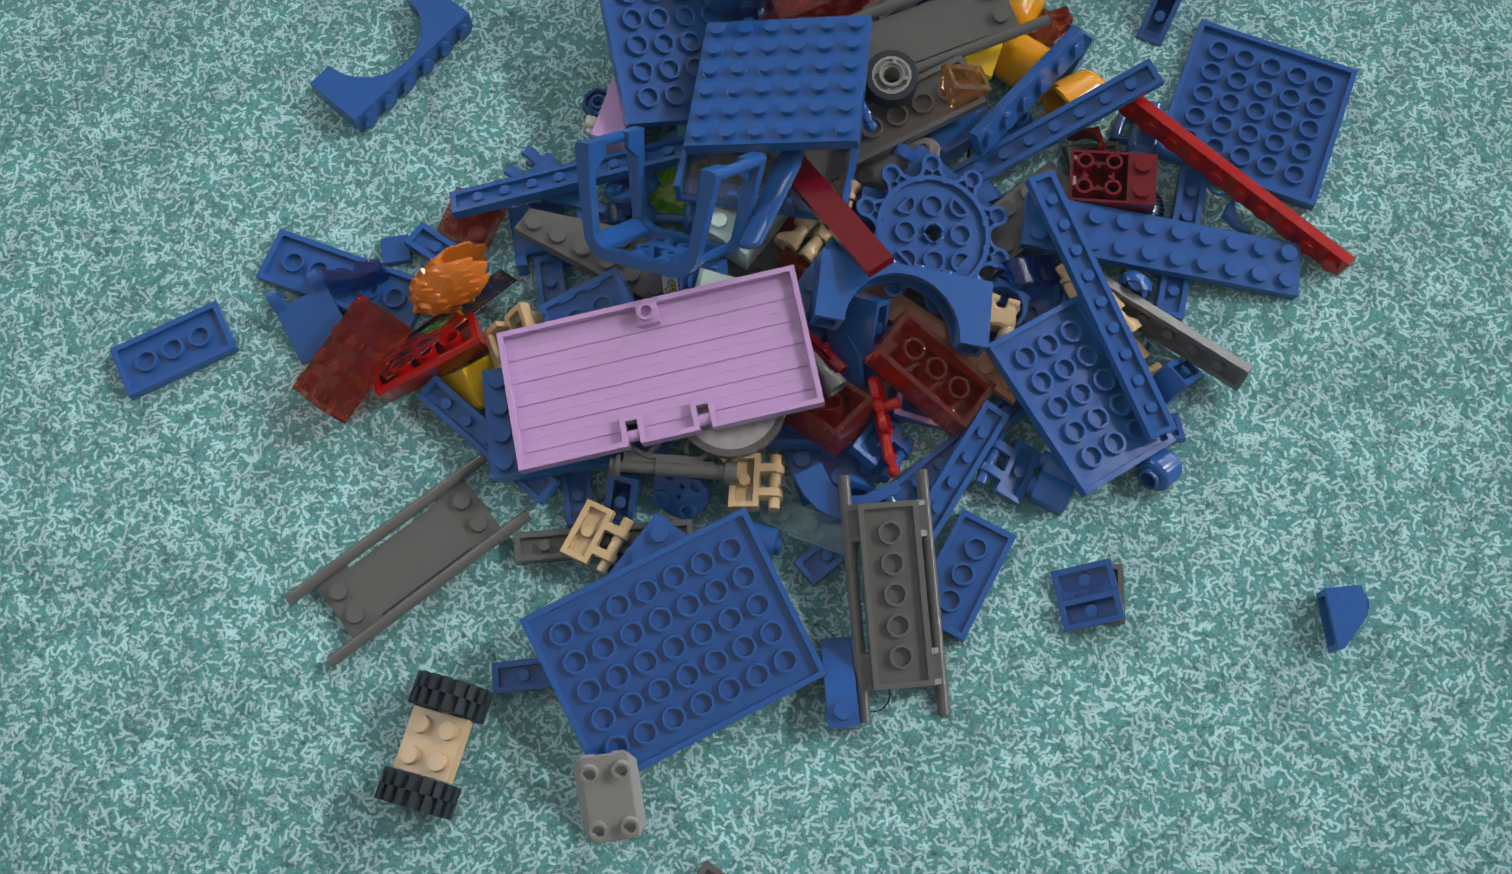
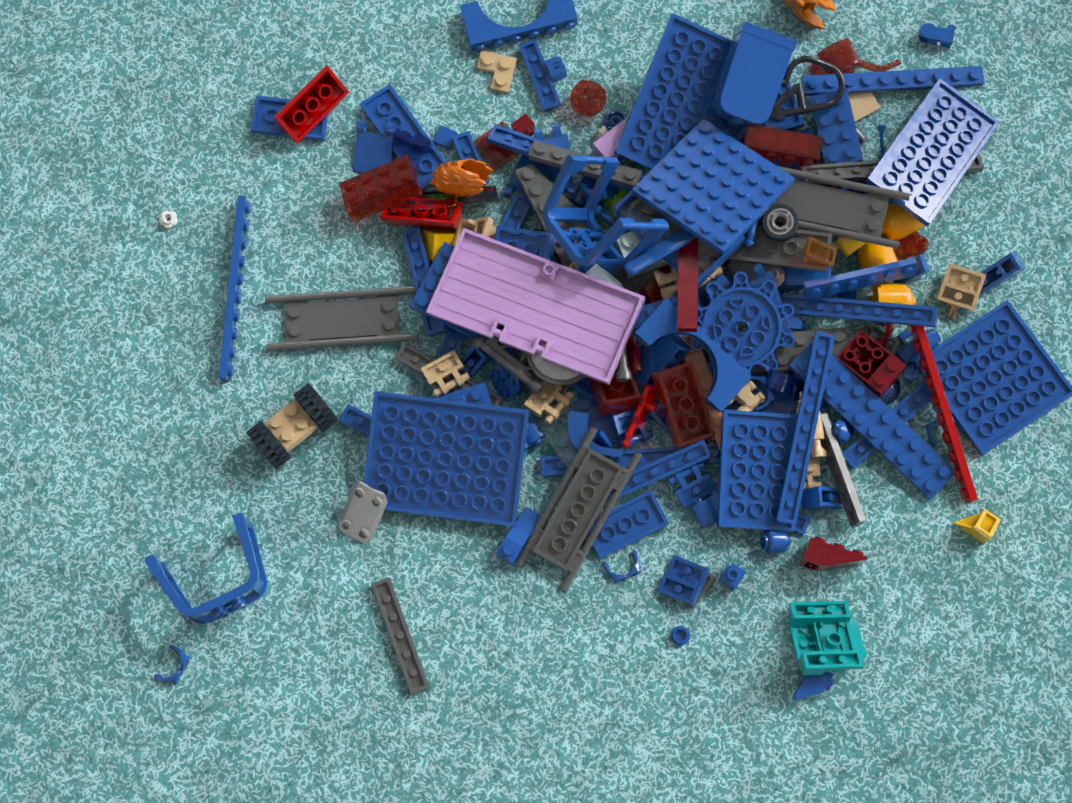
camera: 35 degrees right, 5 degrees up
(91, 584) = (172, 222): none -> white plate
(189, 313) = (311, 104): none -> red slope
(240, 623) = (234, 296): none -> blue plate
(411, 126) = (501, 66): none -> tan plate
(471, 102) = (543, 74): none -> blue plate
(487, 171) = (524, 125): none -> dark red plate
(545, 95) = (591, 90): none -> clear red plate
(564, 176) = (556, 156): none -> dark grey plate
(1002, 650) = (617, 578): none -> blue cap
(1135, 670) = (680, 635): none -> blue plate
(1142, 36) = (961, 288): none -> tan plate
(1144, 548) = (732, 576): none -> blue window
(1163, 169) = (911, 373): none -> blue plate
(1230, 446) = (825, 556): none -> dark red slope
(1315, 548) = (825, 637): none -> teal slope
(1378, 290) = (980, 525): none -> yellow slope

